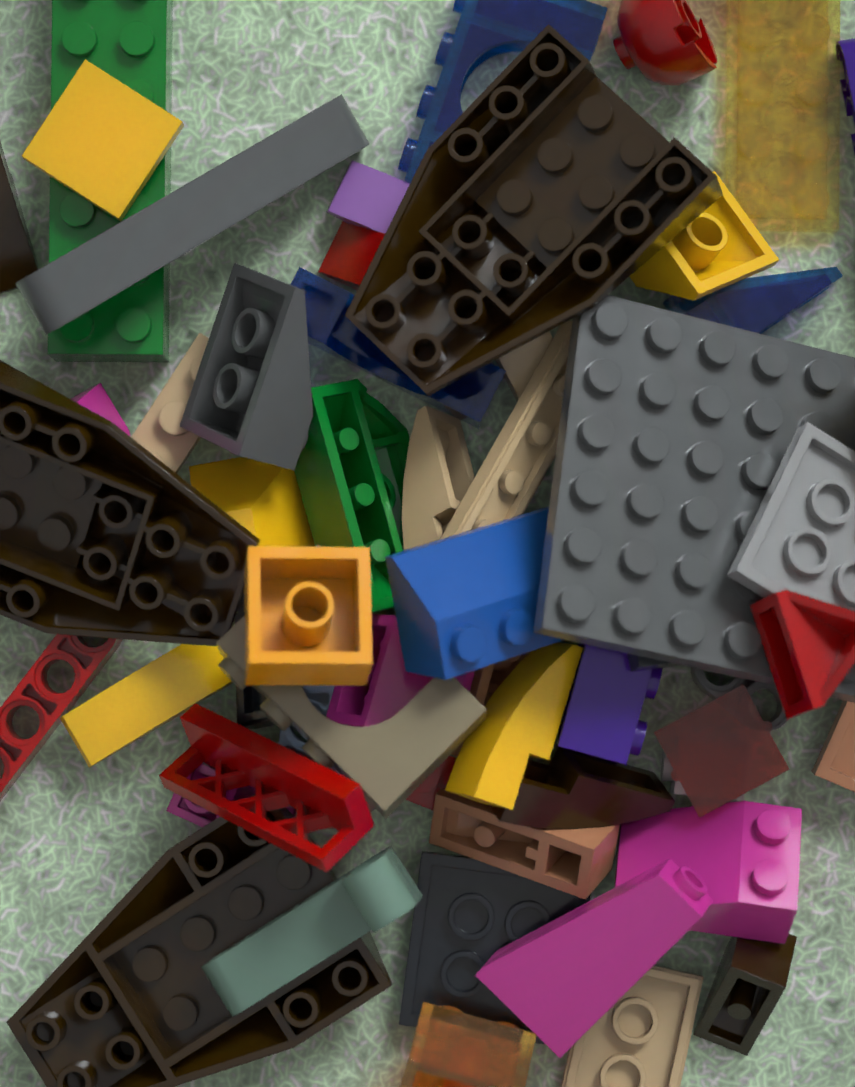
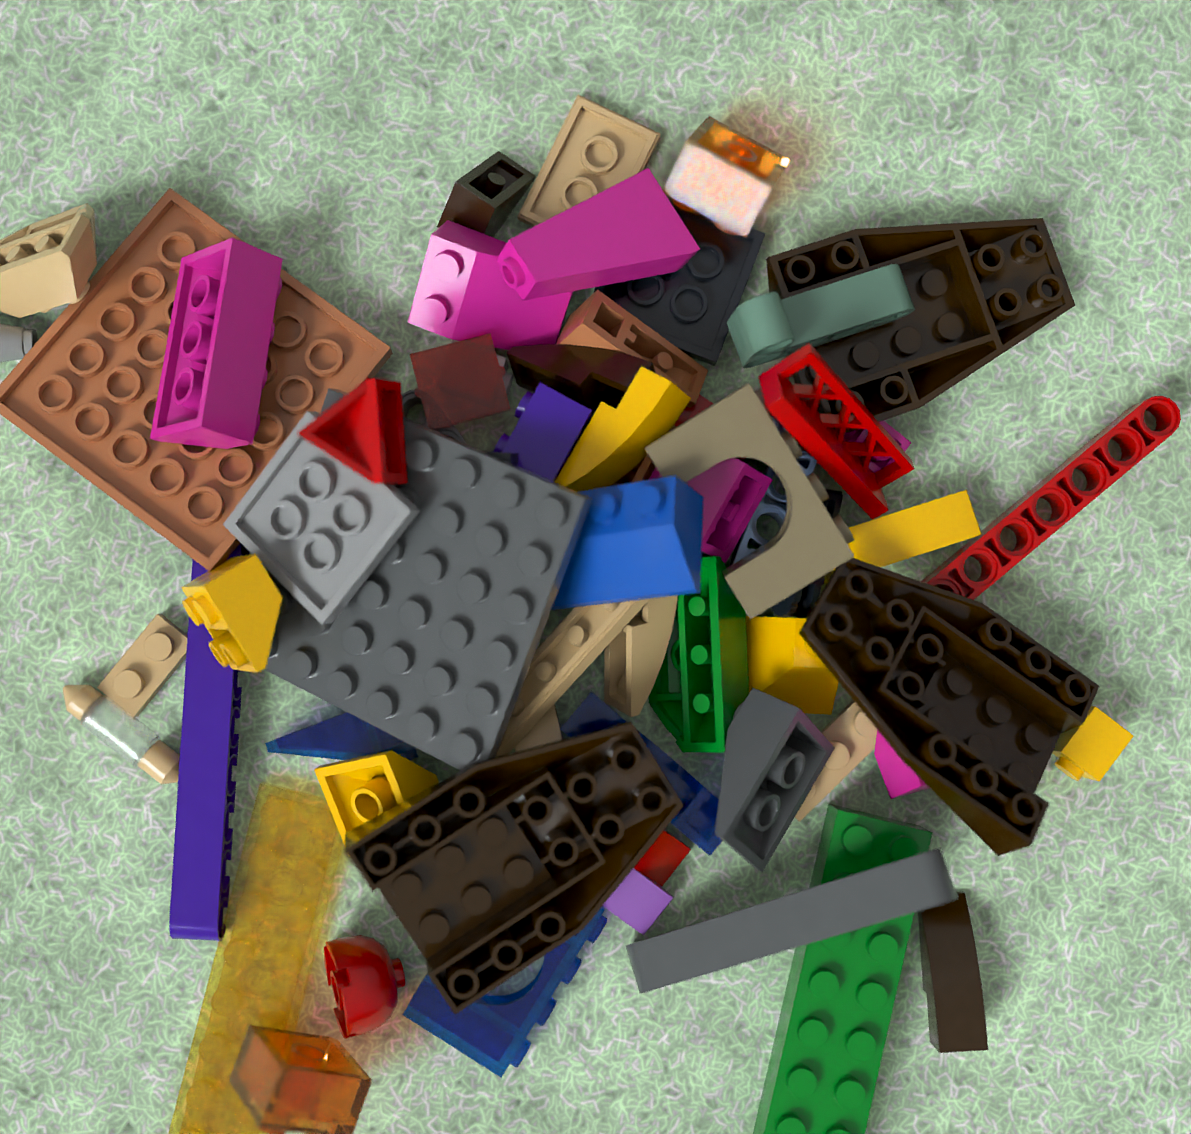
camera: 175 degrees left, 0 degrees up
(103, 140) = (850, 1002): yellow tile -> none
(307, 616) = (778, 556): light orange brick -> none

